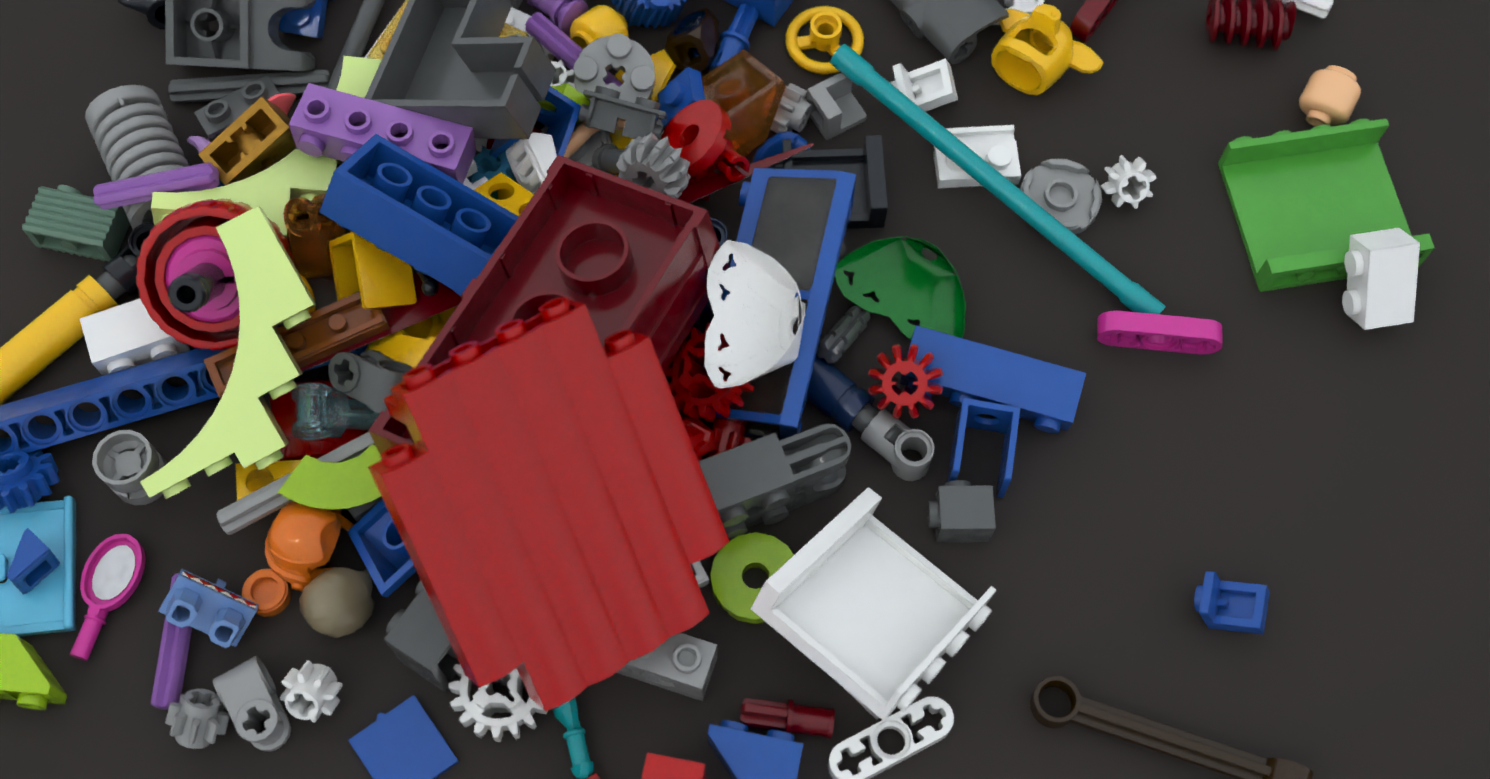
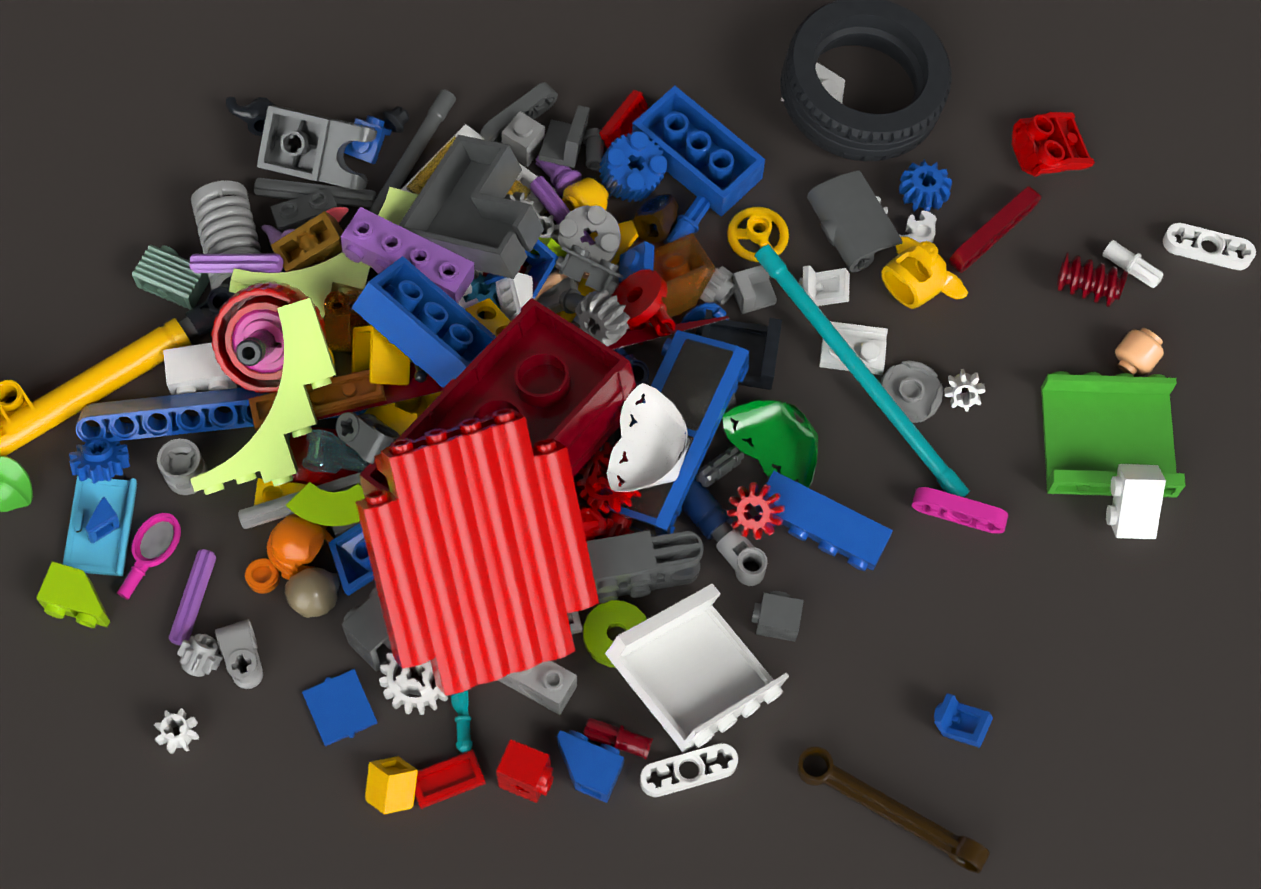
camera: 10 degrees right, 0 degrees up
(208, 608) = (220, 578): medium blue hips -> none
(311, 691) = (282, 651): white gear -> none
(1006, 423) = (799, 545): blue piece -> none

